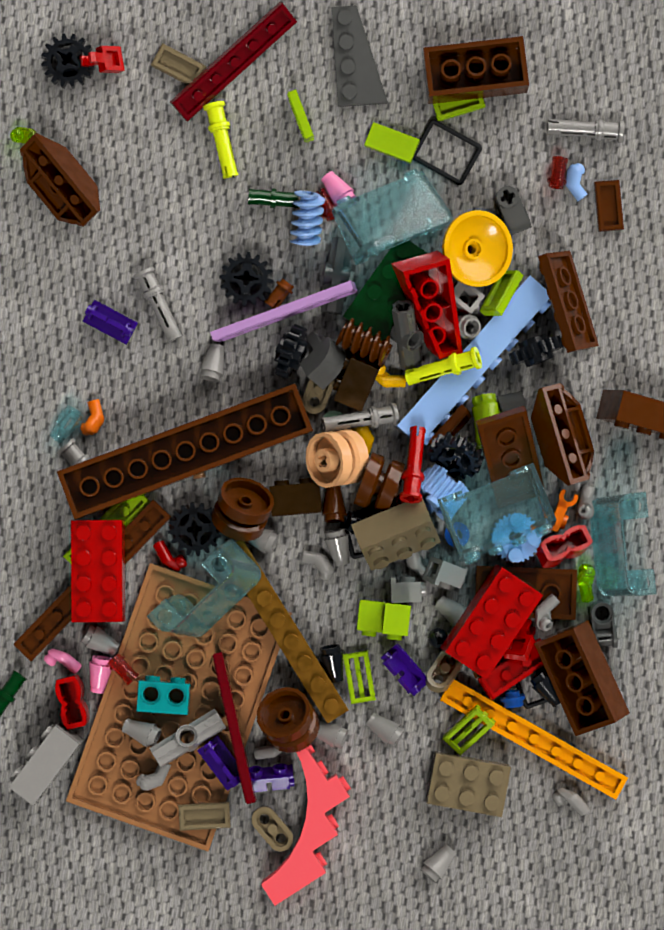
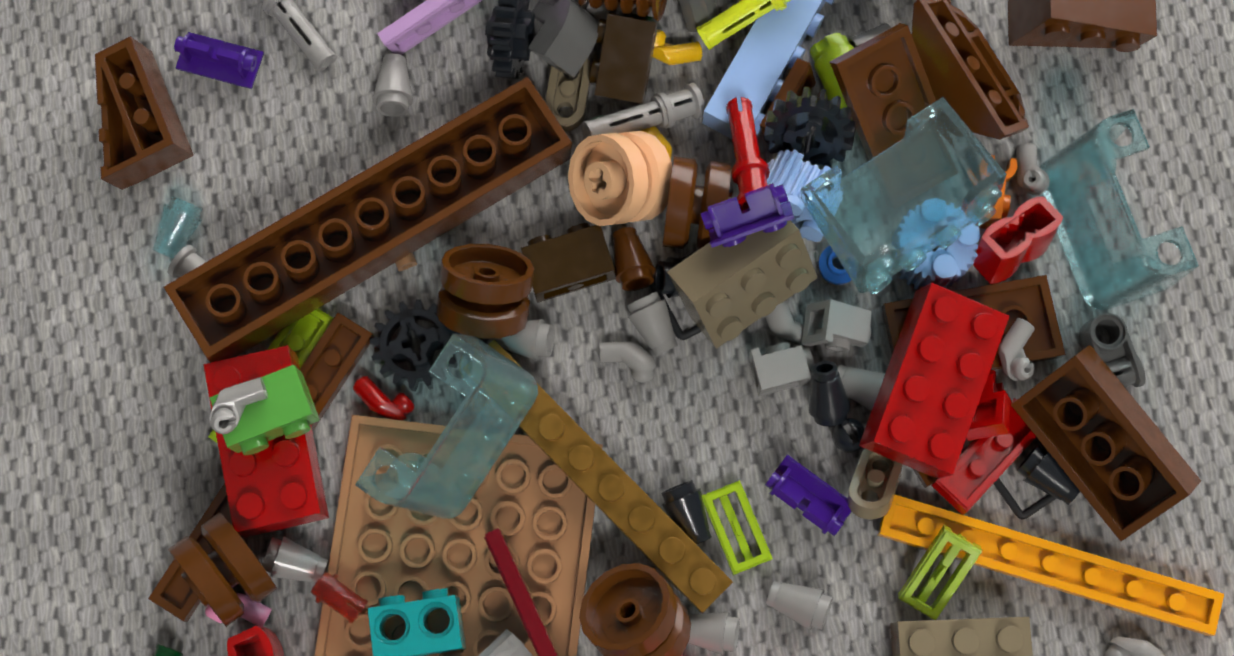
camera: 15 degrees left, 10 degrees down
(55, 351) = (138, 116): none -> reddish brown wedge
(57, 642) = (222, 569): none -> reddish brown wheel
(87, 556) = (232, 402): none -> light grey arm
(95, 419) = (222, 212): orange arm -> none
(99, 673) = (302, 617): bright pink cone -> none
(103, 560) = (285, 412): none -> bright green brick
(383, 618) = (762, 417): lime brick -> none
(392, 509) = (764, 213): none -> dark purple hinge
(429, 614) = (827, 395): none -> black cone
(512, 699) = (998, 506): blue plate -> none
(585, 582) = (1063, 289): clear neon green arm -> none

